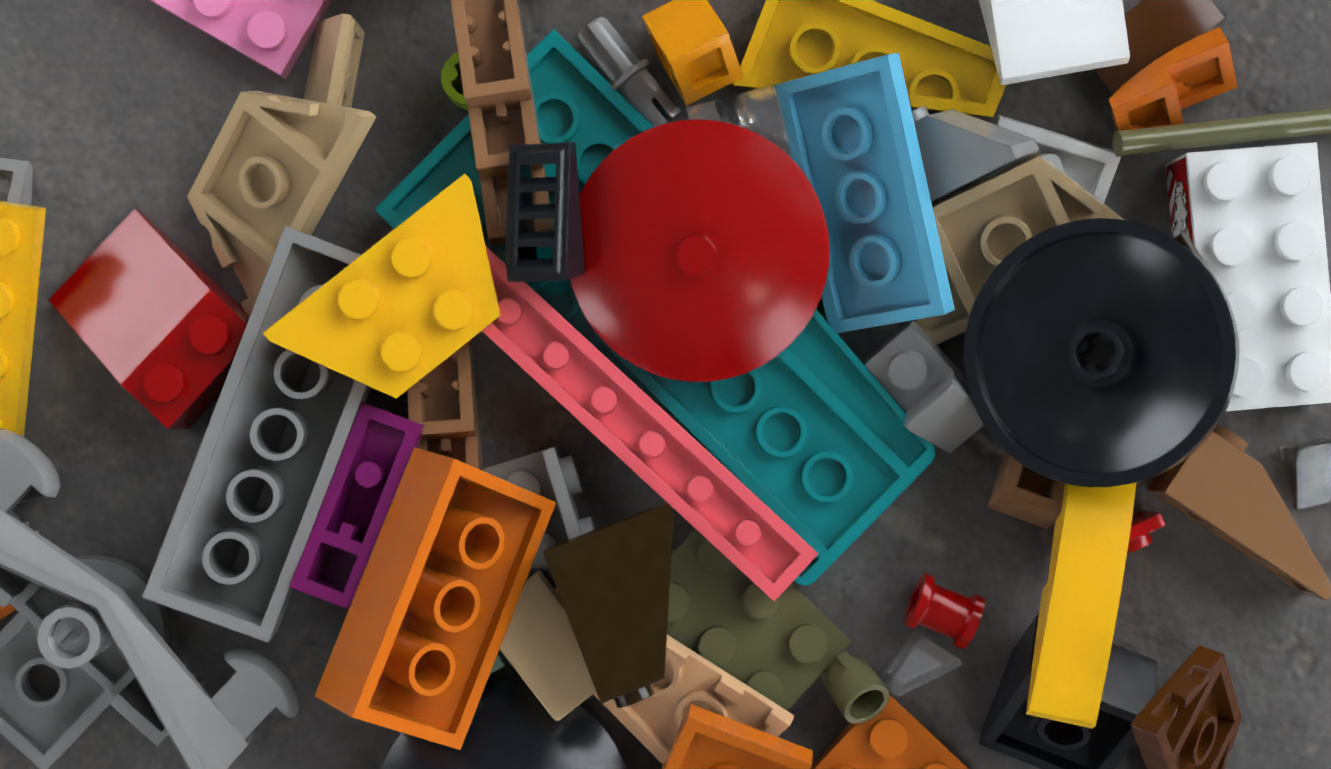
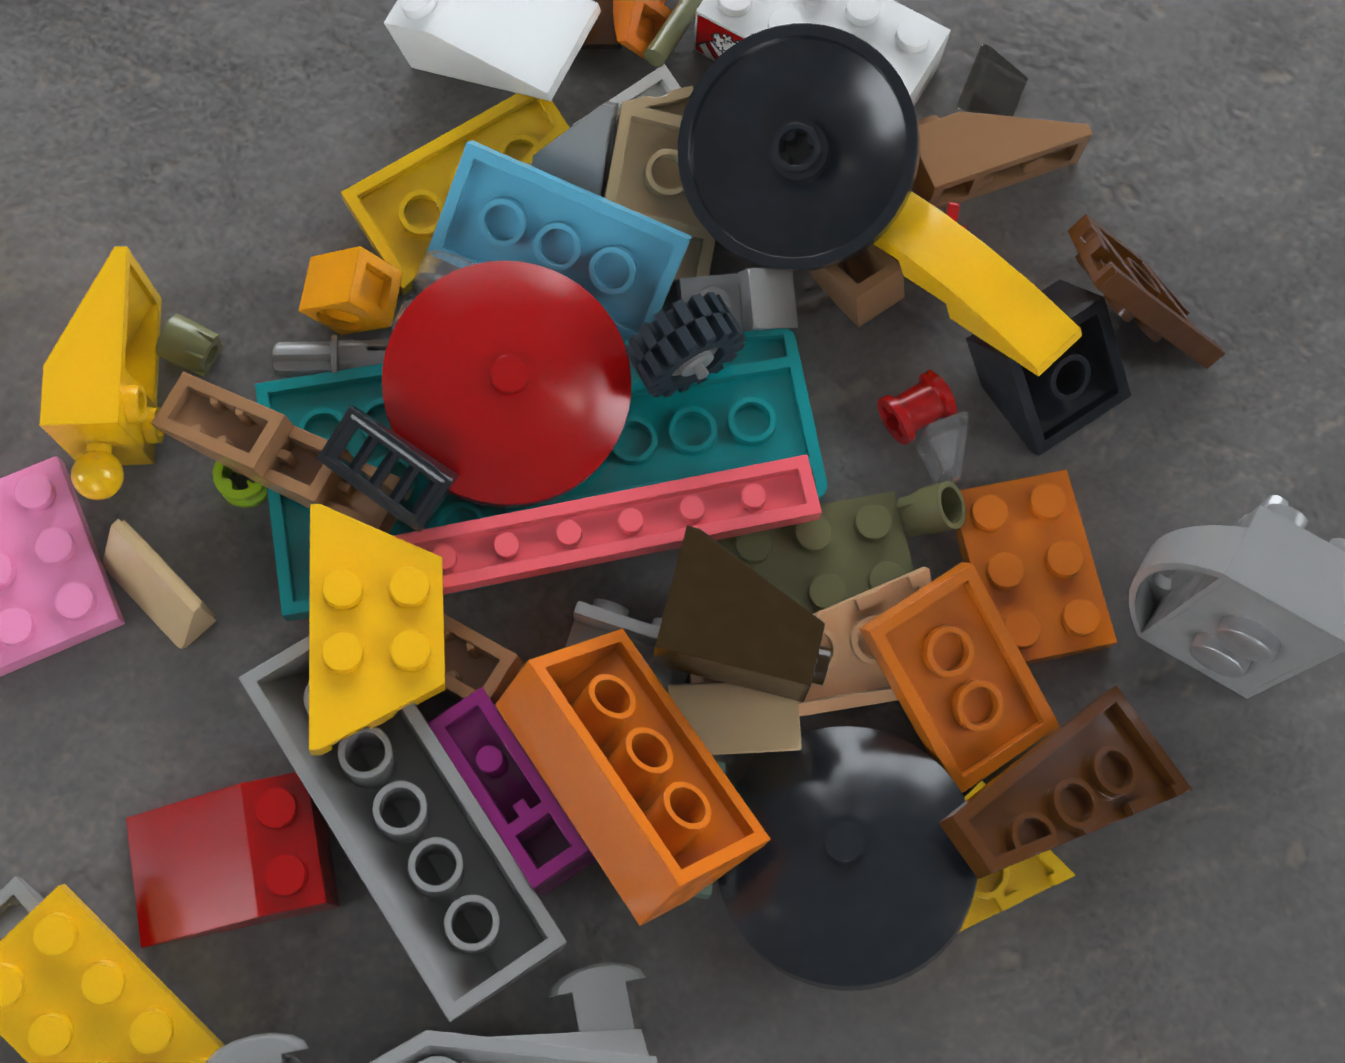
camera: 60 degrees left, 15 degrees down
(271, 171) = (182, 676): tan wing -> none
(839, 382) = (685, 344): none -> black wheel

